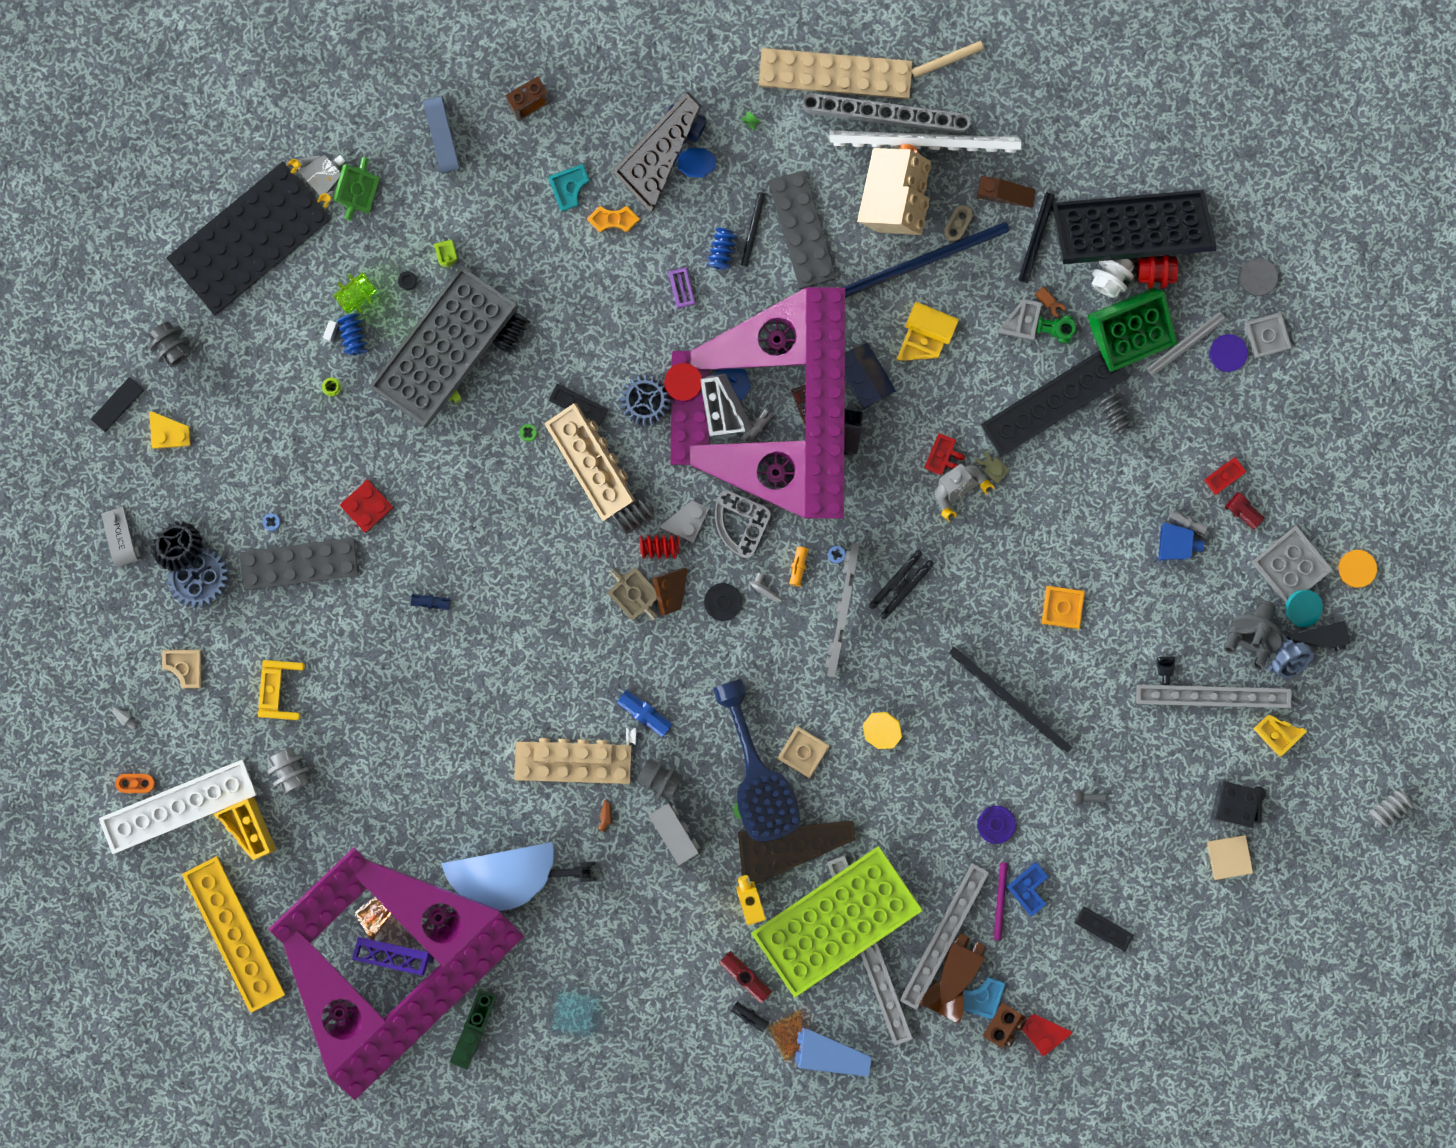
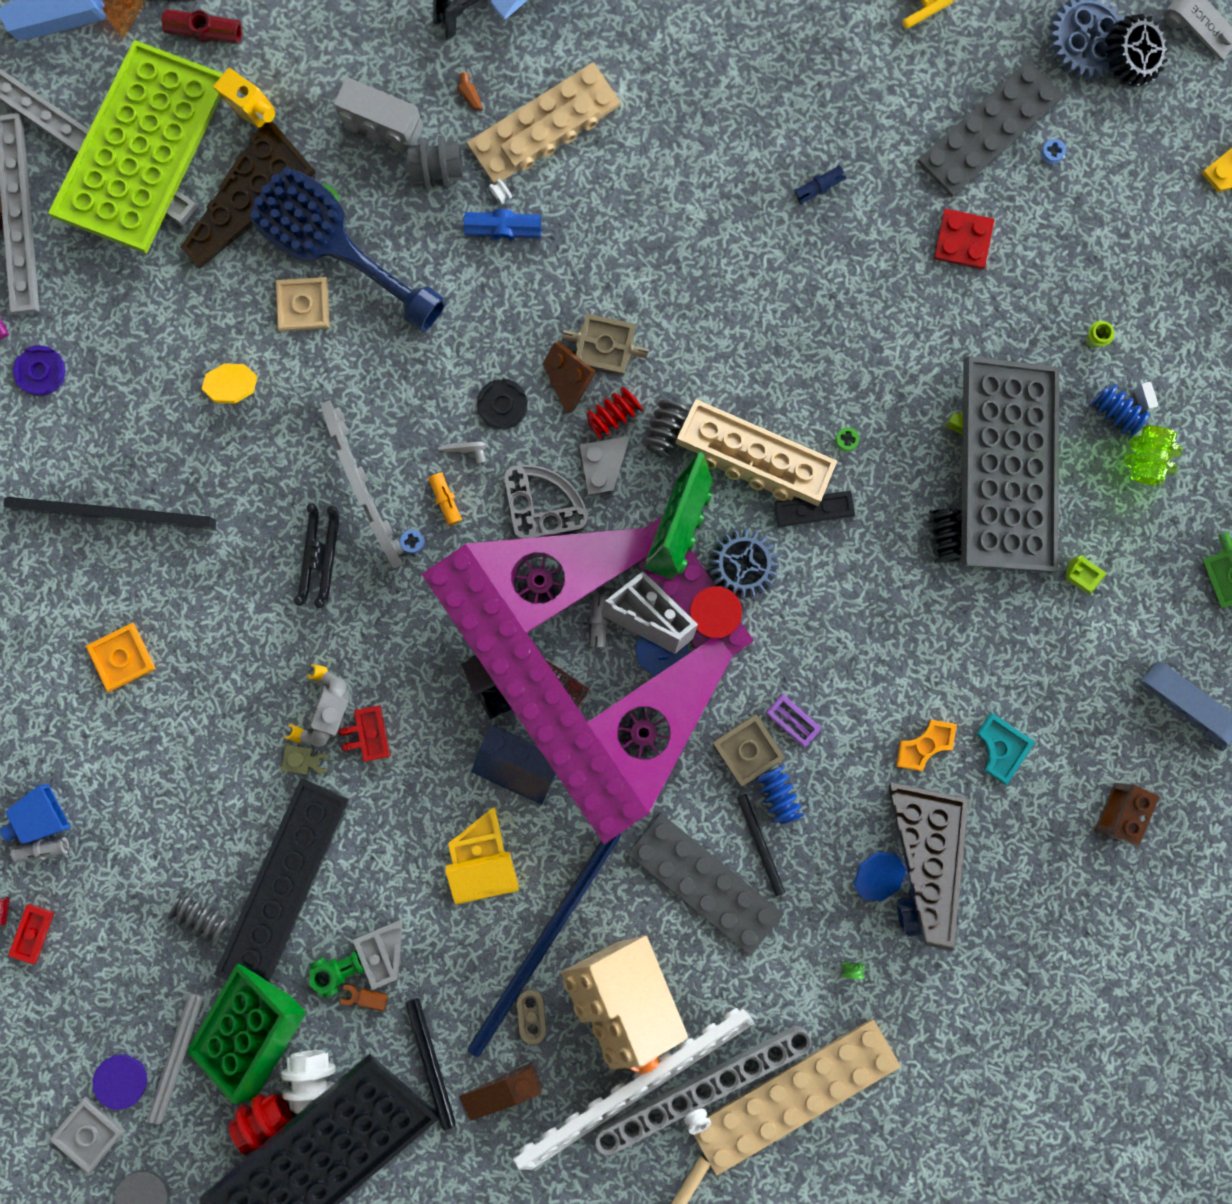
camera: 150 degrees right, 0 degrees up
(407, 280) = (1103, 514): black tile -> none
(667, 450) = (680, 520): none -> green slope
(721, 288) = (748, 750): none -> dark tan plate
(901, 98) = (697, 1121): none -> white bush

